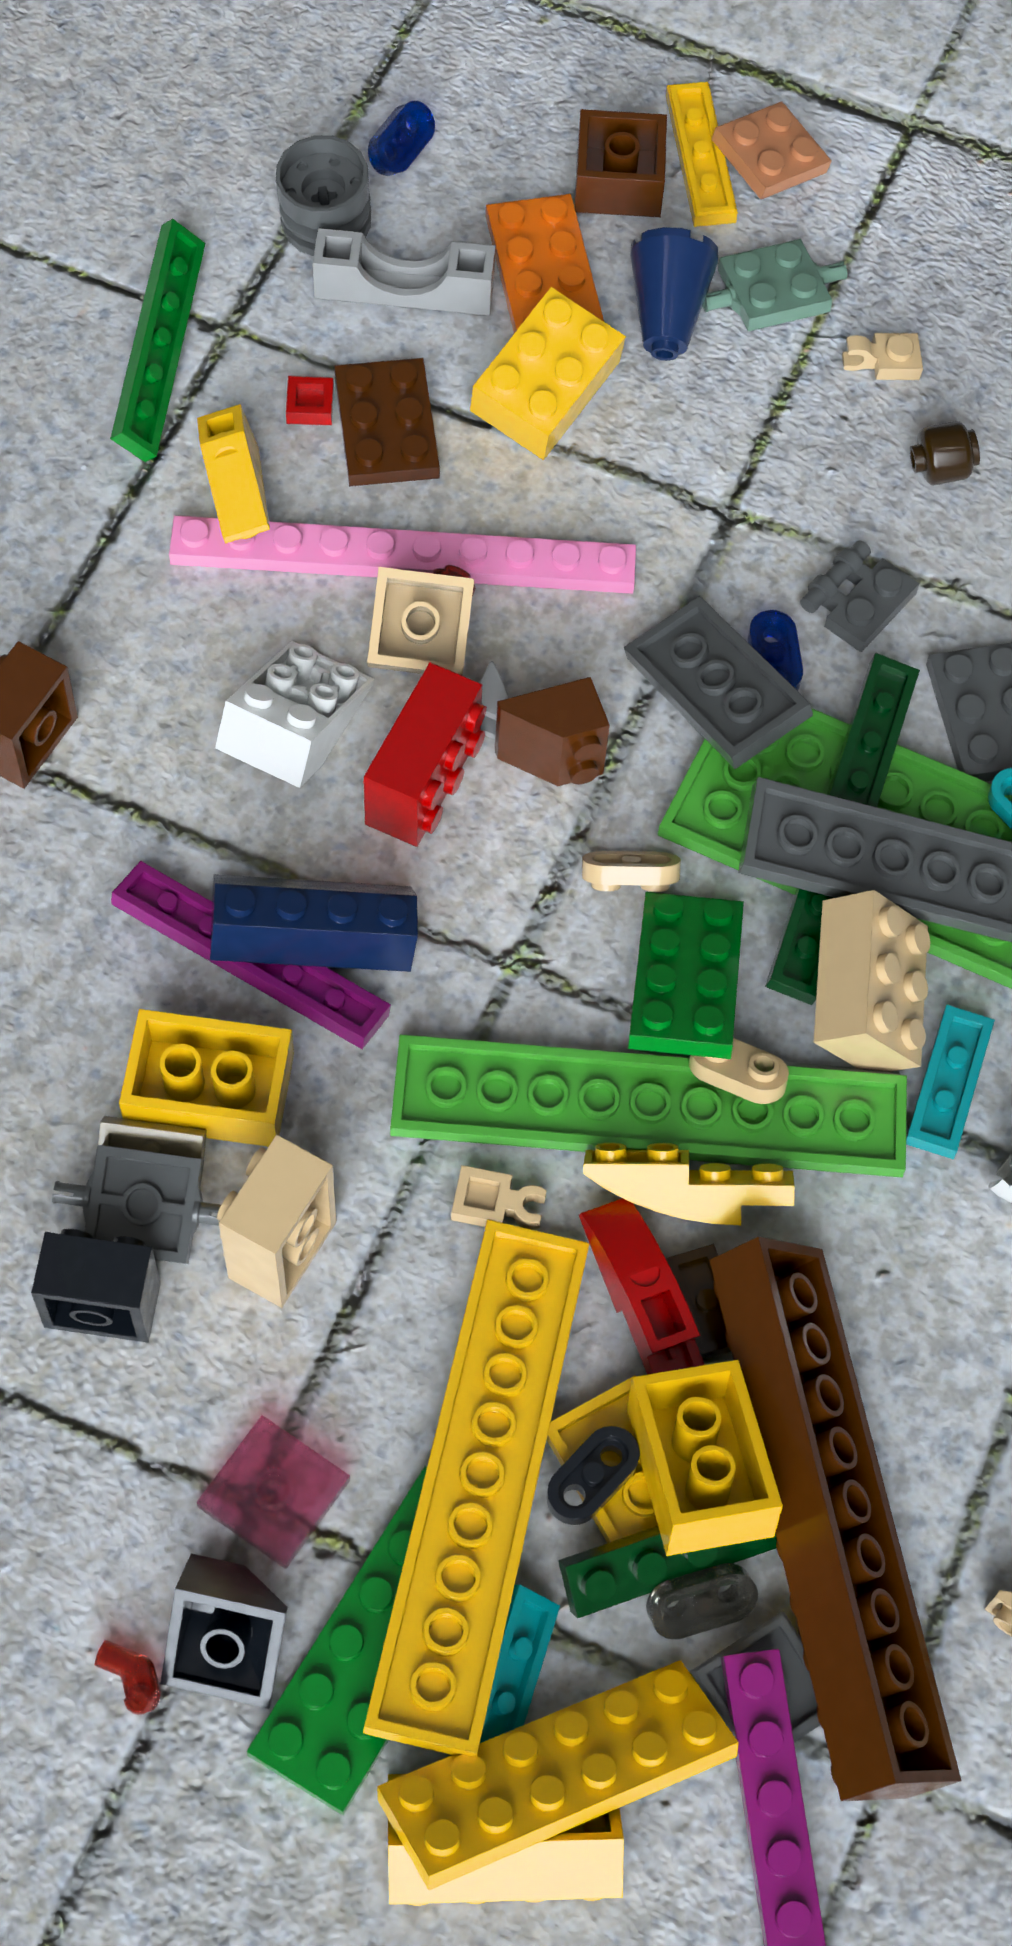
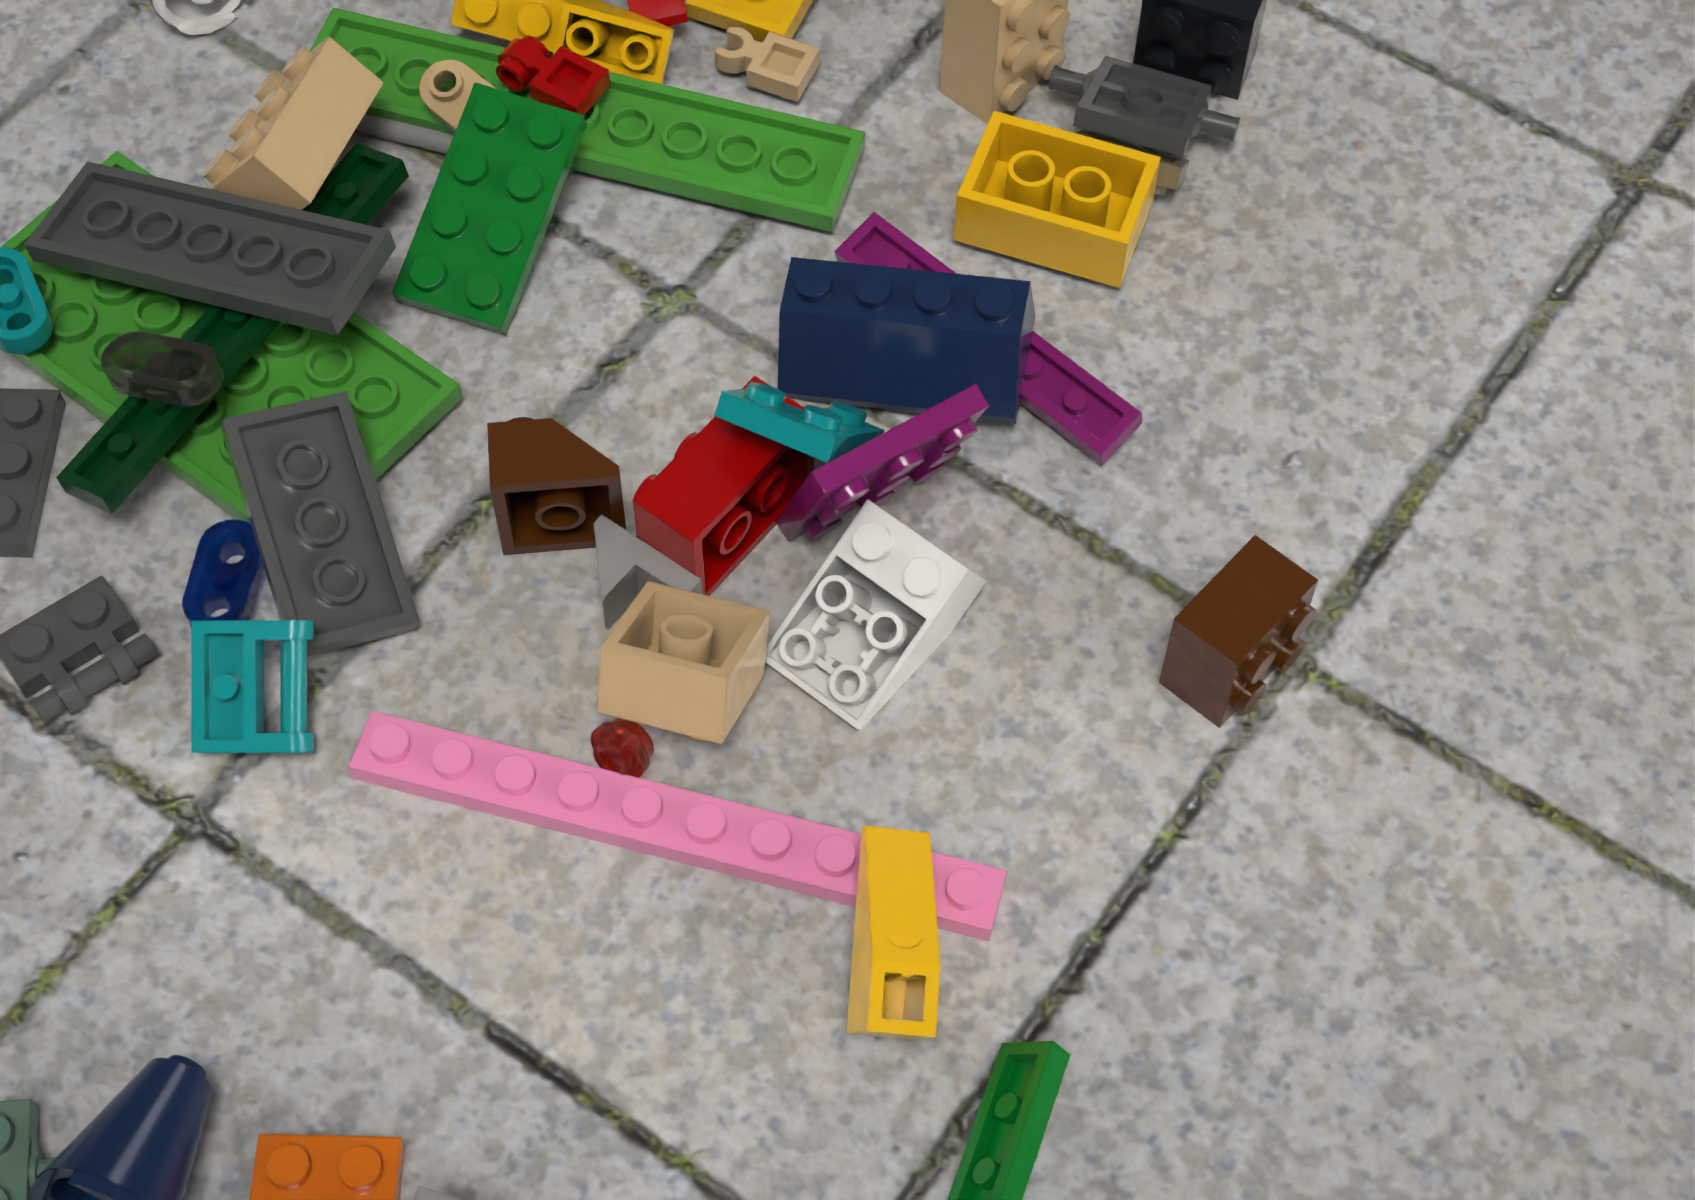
camera: 165 degrees left, 5 degrees down
(304, 771) = (881, 464): none -> magenta plate
(309, 400) = (753, 1089): red plate -> none
(364, 730) = (813, 431): none -> teal plate
(386, 422) = (643, 1048): reddish brown plate -> none
(547, 373) = (381, 1032): yellow brick -> none
(649, 869) = (512, 349): tan plate -> none
(664, 1102) = (559, 81): none -> red plate
(732, 566) = (230, 686): none -> teal plate
(873, 740) = (162, 368): none -> clear smoke plate
(949, 1082) = (229, 92): teal plate -> none

